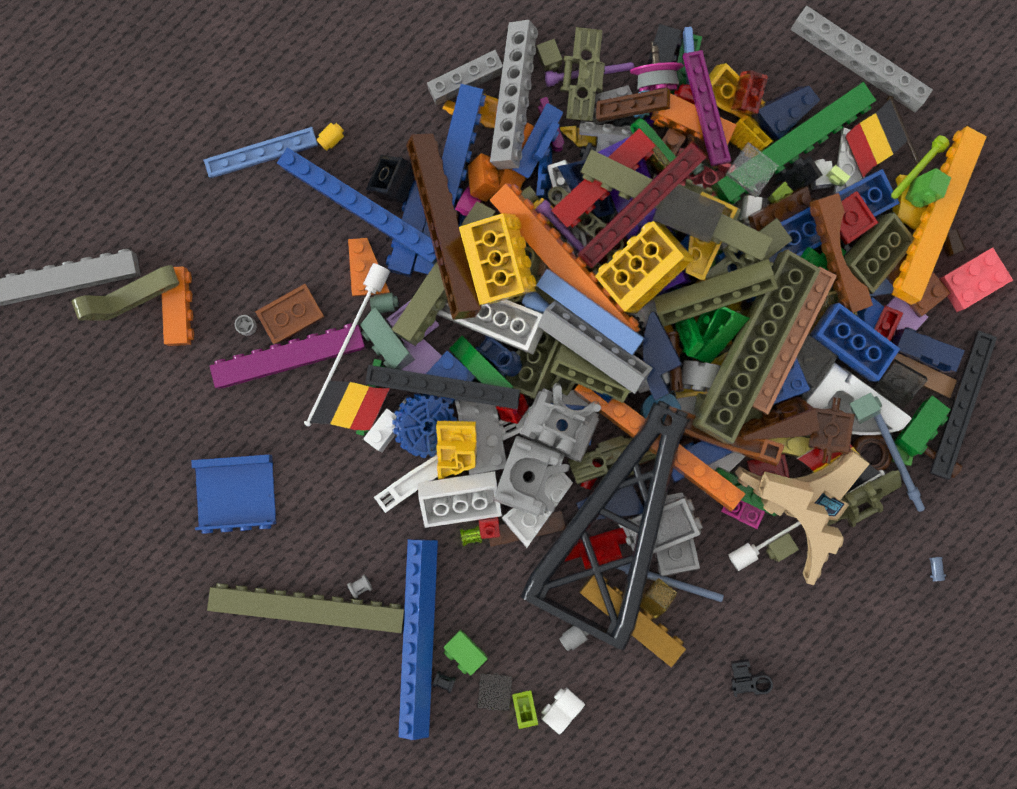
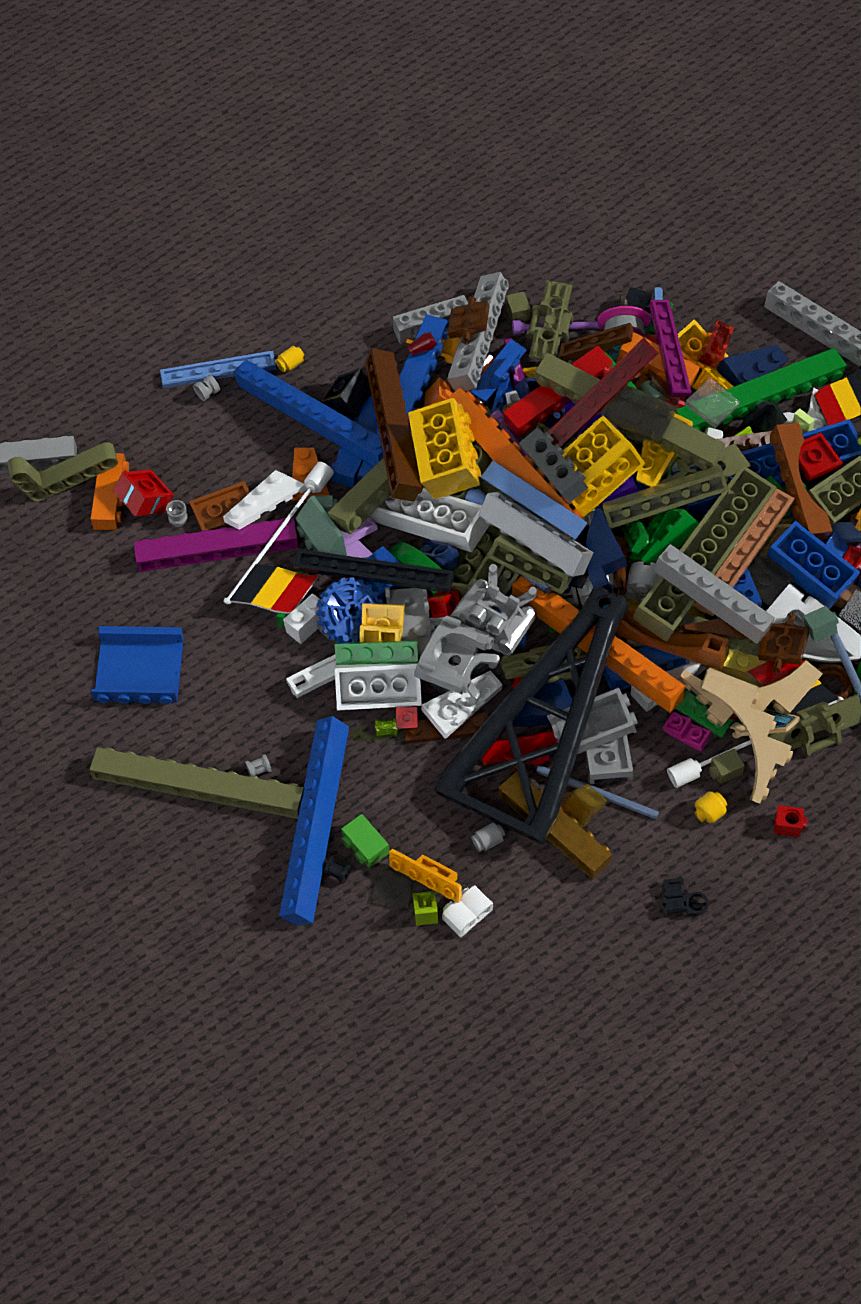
camera: 10 degrees right, 25 degrees down
(209, 310) = (143, 492): none -> red container
(256, 175) = (206, 387): none -> light grey wheel
(328, 303) = (263, 498): none -> white wing
(455, 471) = (377, 652): none -> green plate
(461, 122) = (422, 344): none -> dark red cone
(503, 86) = (468, 320): none -> reddish brown plate
(528, 680) = (428, 873): none -> light orange bracket
(585, 257) = (554, 465): none -> dark grey brick
(769, 590) = (710, 807): none -> yellow head
(770, 405) = (713, 594): none -> light grey brick
(831, 596) = (784, 813): none -> red brick

